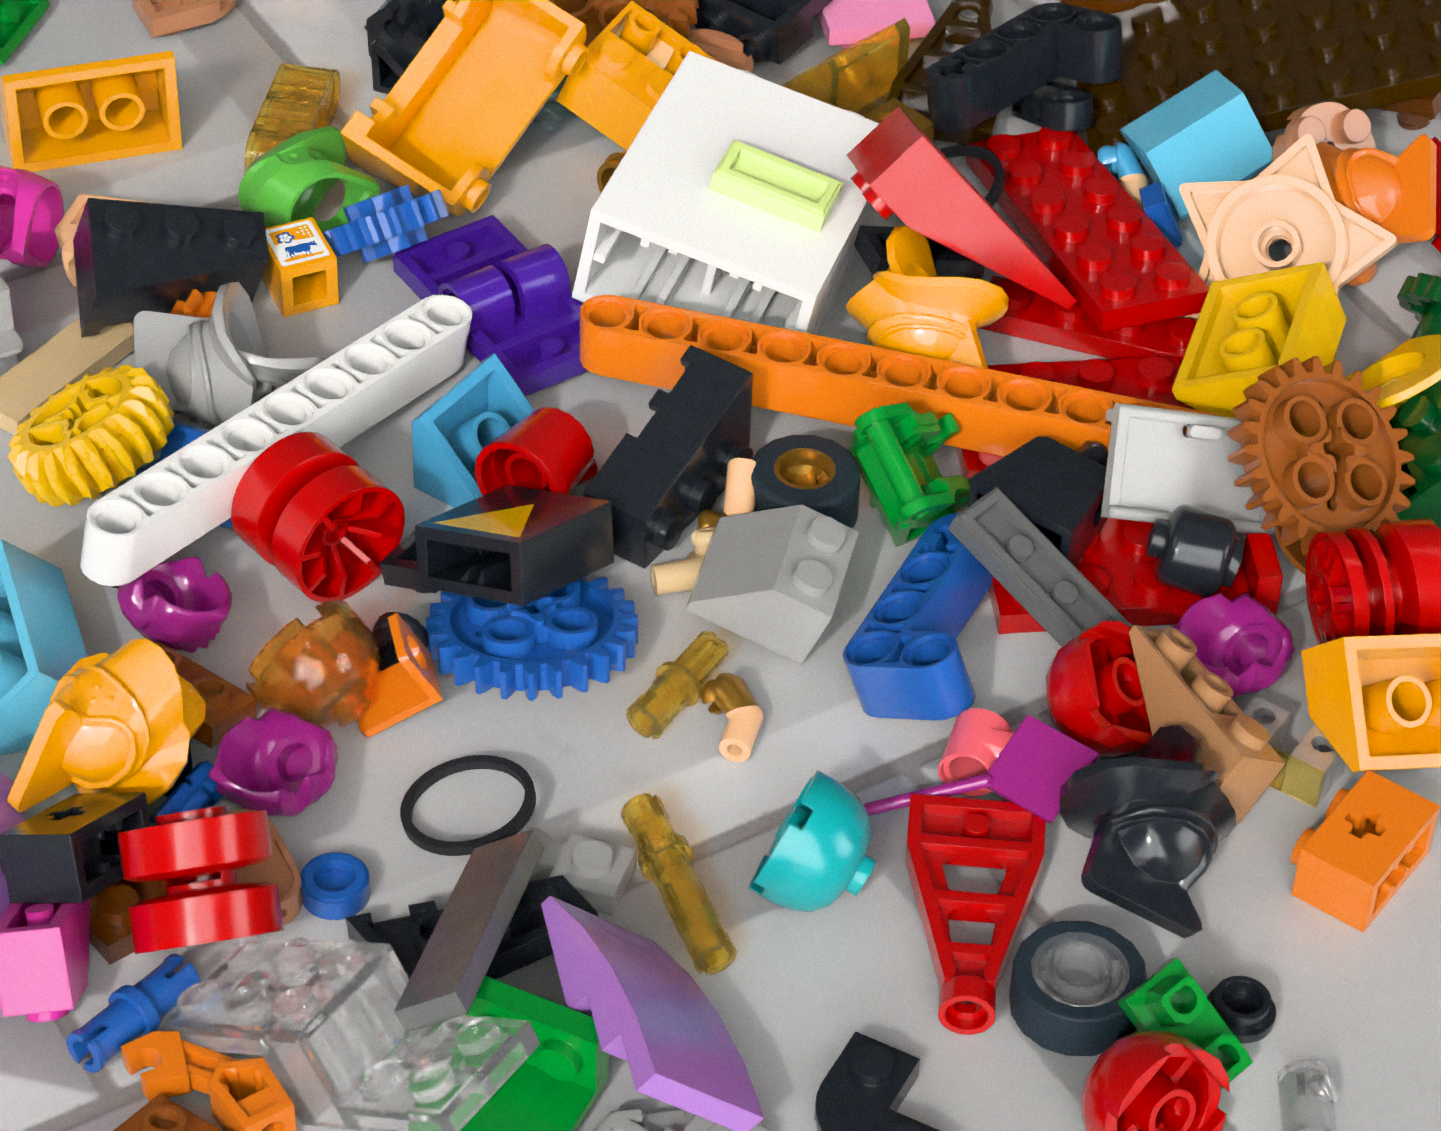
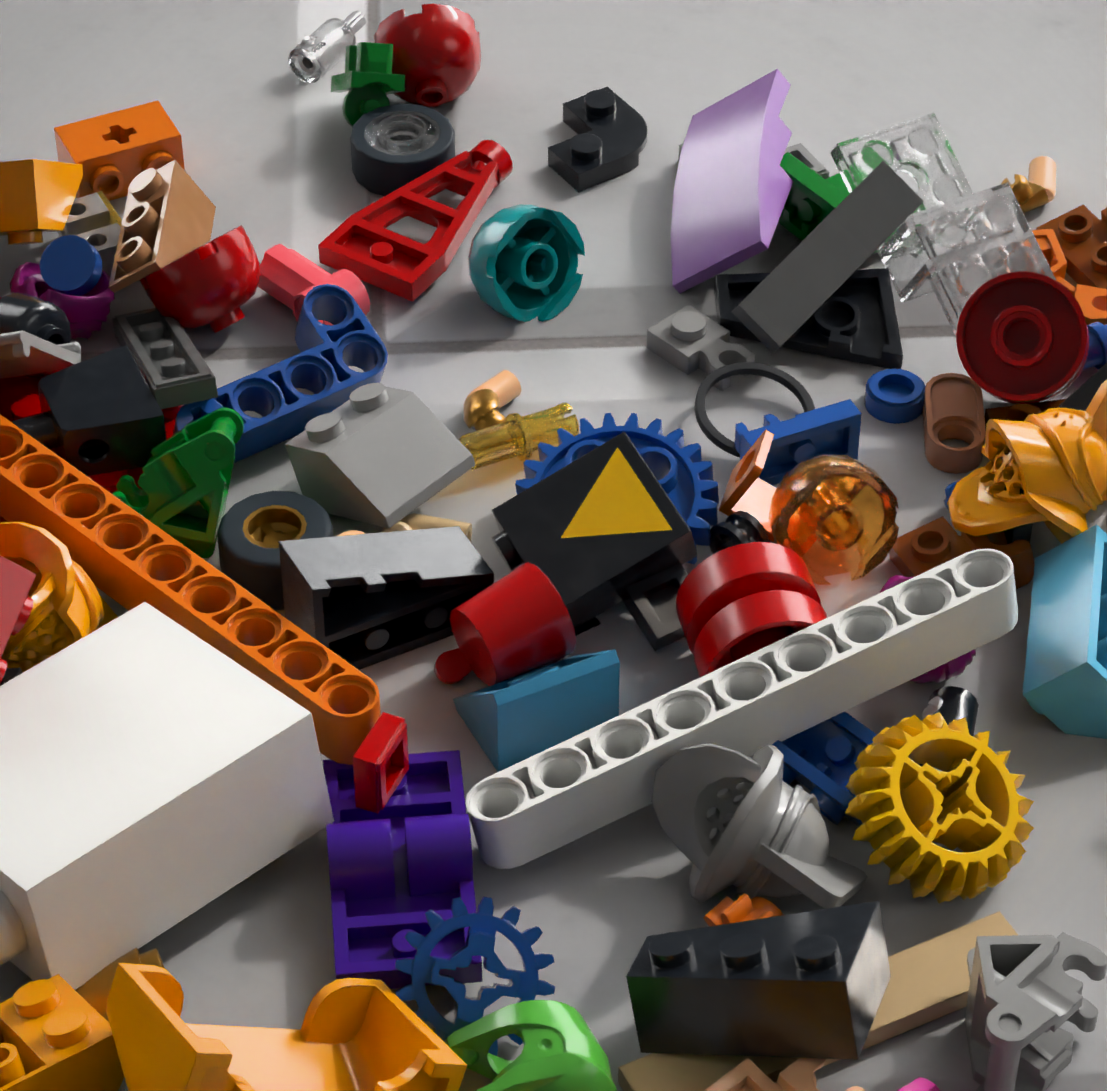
camera: 150 degrees left, 0 degrees up
(275, 763) = (913, 460): magenta hair -> none
(300, 268) = (597, 986): light orange brick -> none
(391, 760) = (810, 434): none -> blue plate
(555, 311) = (380, 762): none -> red tile
(668, 863) = (629, 311): clear yellow pin -> none
(776, 185) = (85, 699): yellowish green tile -> none
(1025, 772) = (318, 248): magenta piece -> none
(1150, 826) = (265, 183): black helmet -> none
(1238, 646) = (71, 265): none -> blue tile
(1244, 1007) = (305, 111): black plate -> none

